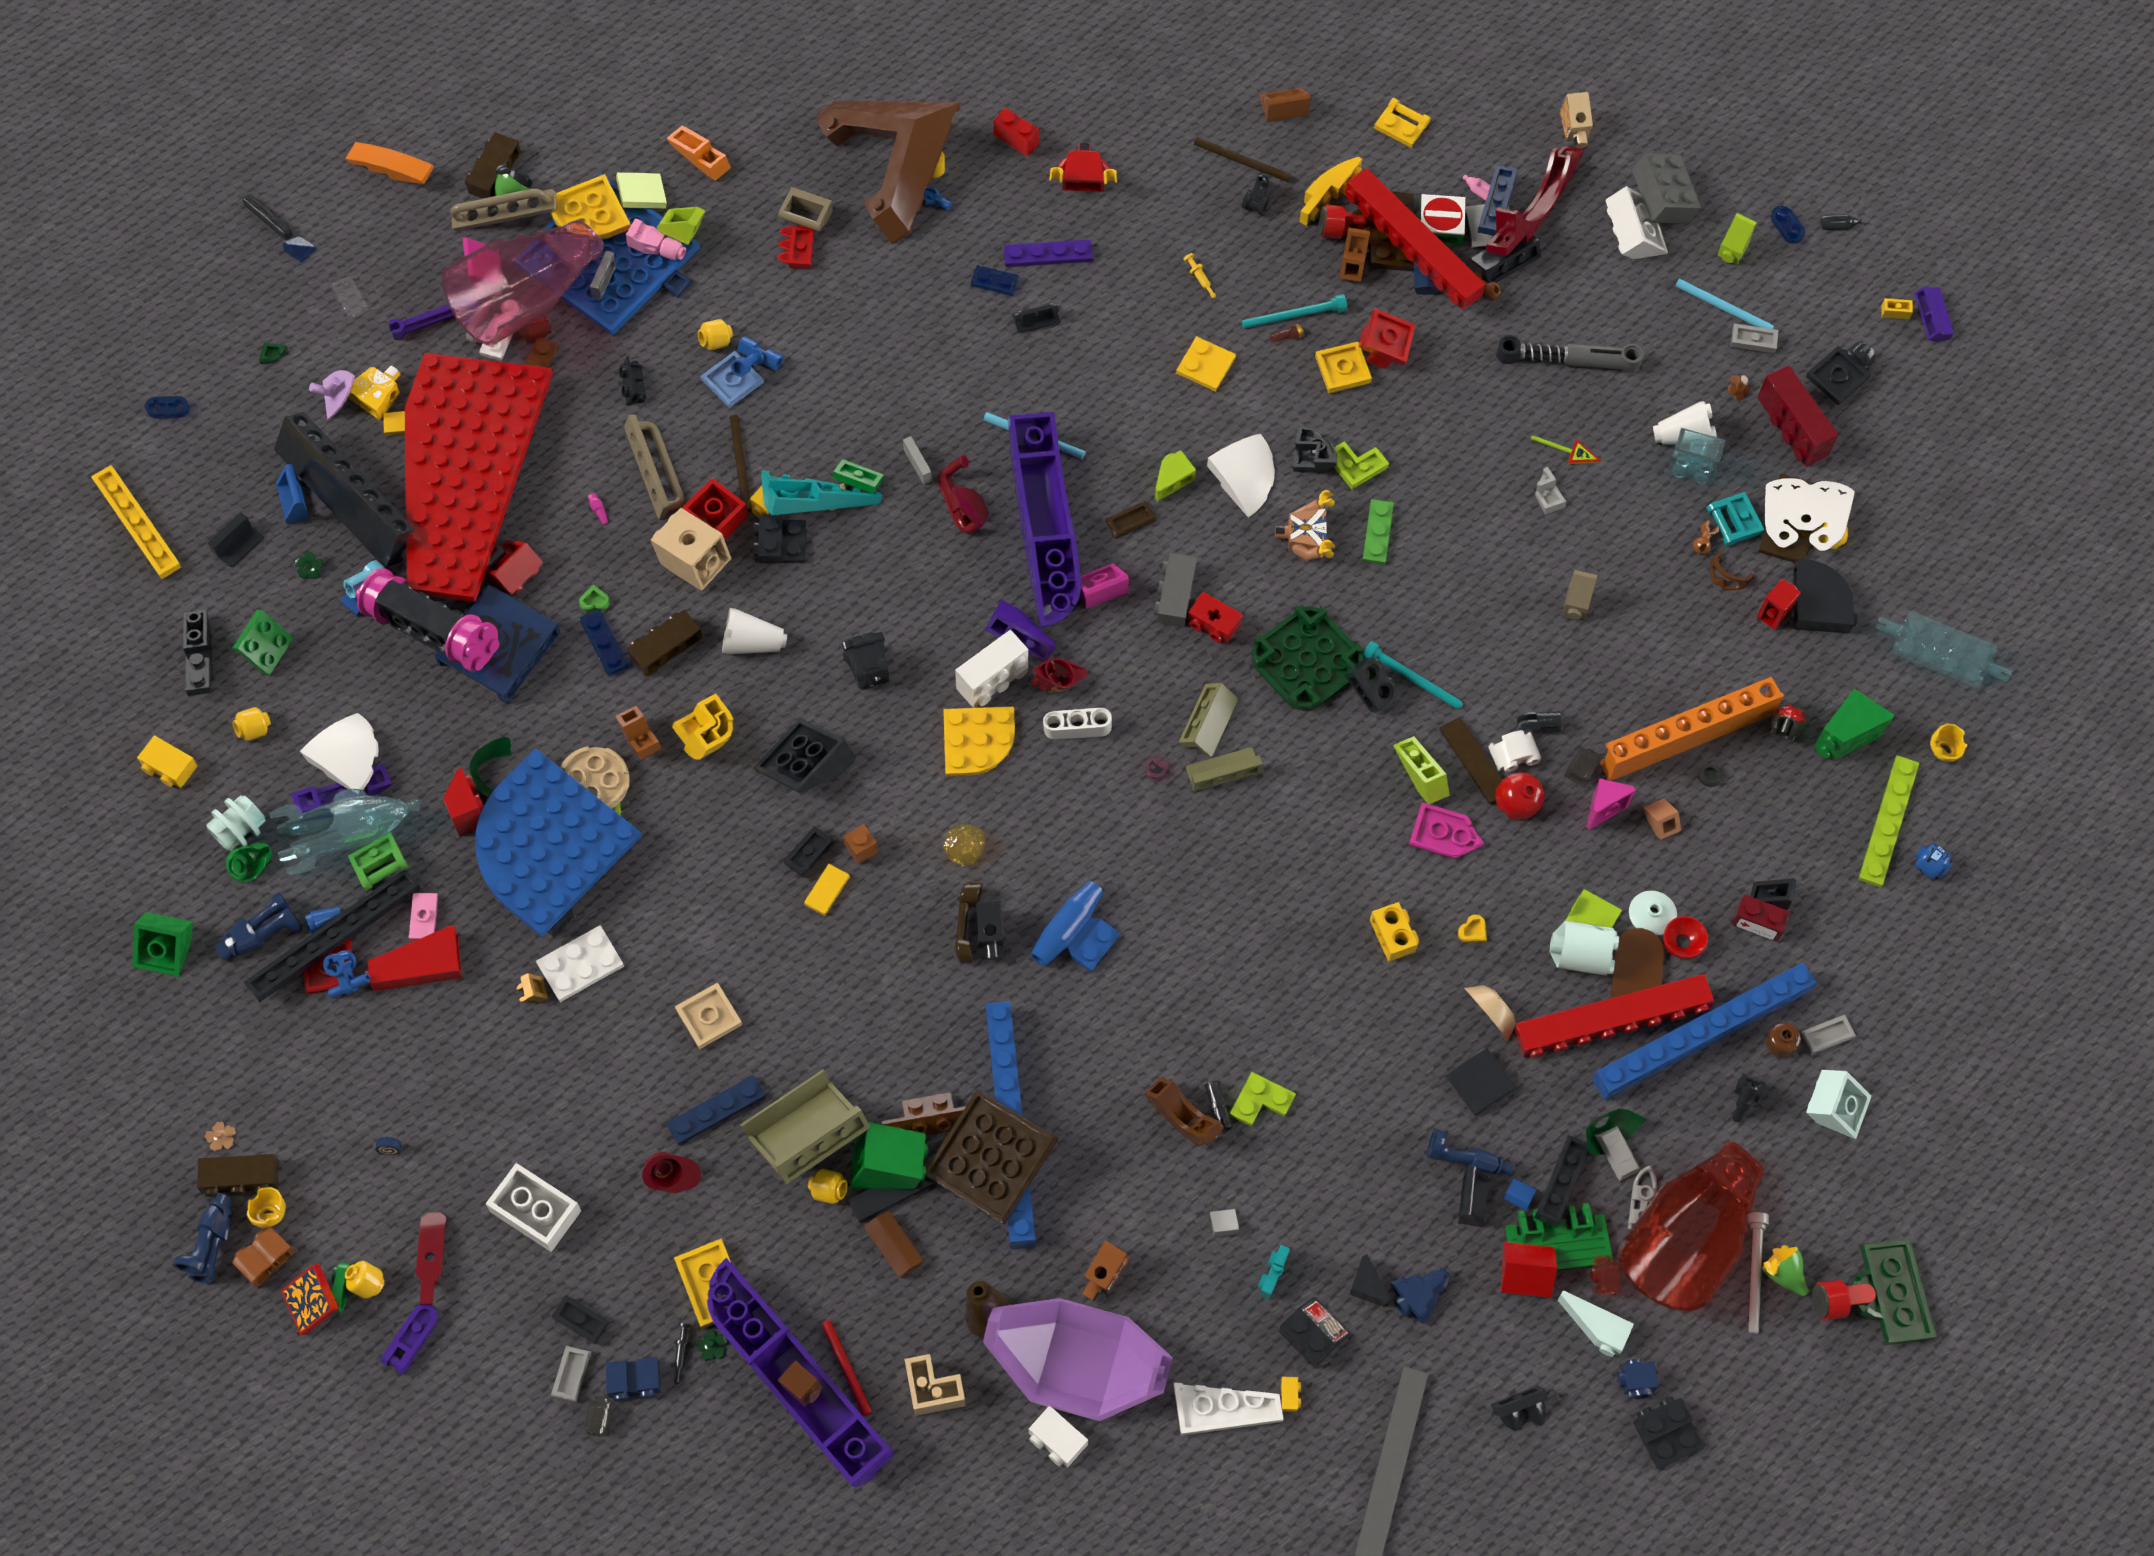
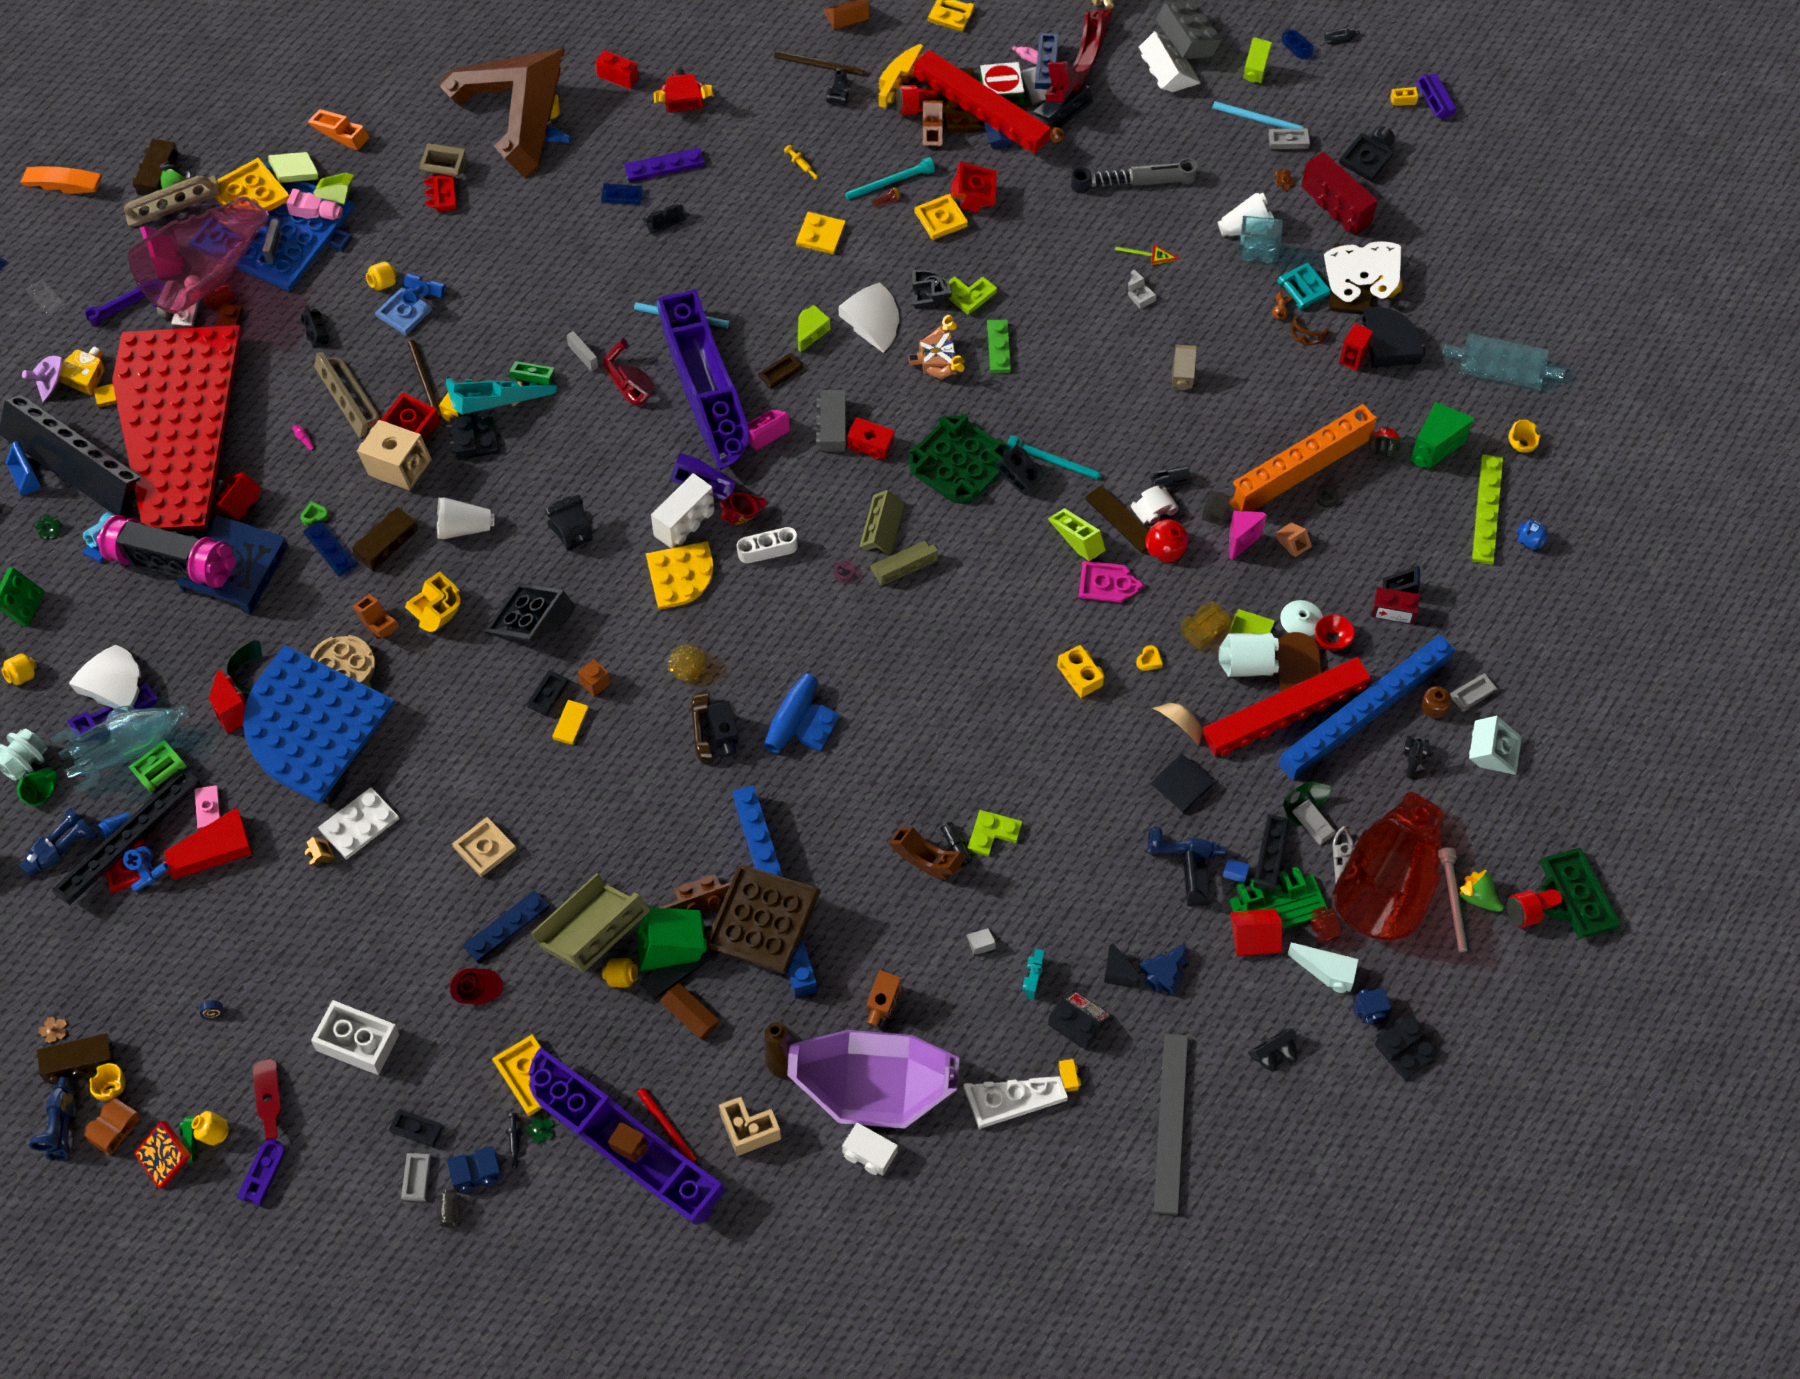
camera: 10 degrees left, 5 degrees down
(1543, 902) = (1204, 625): none -> clear yellow brick

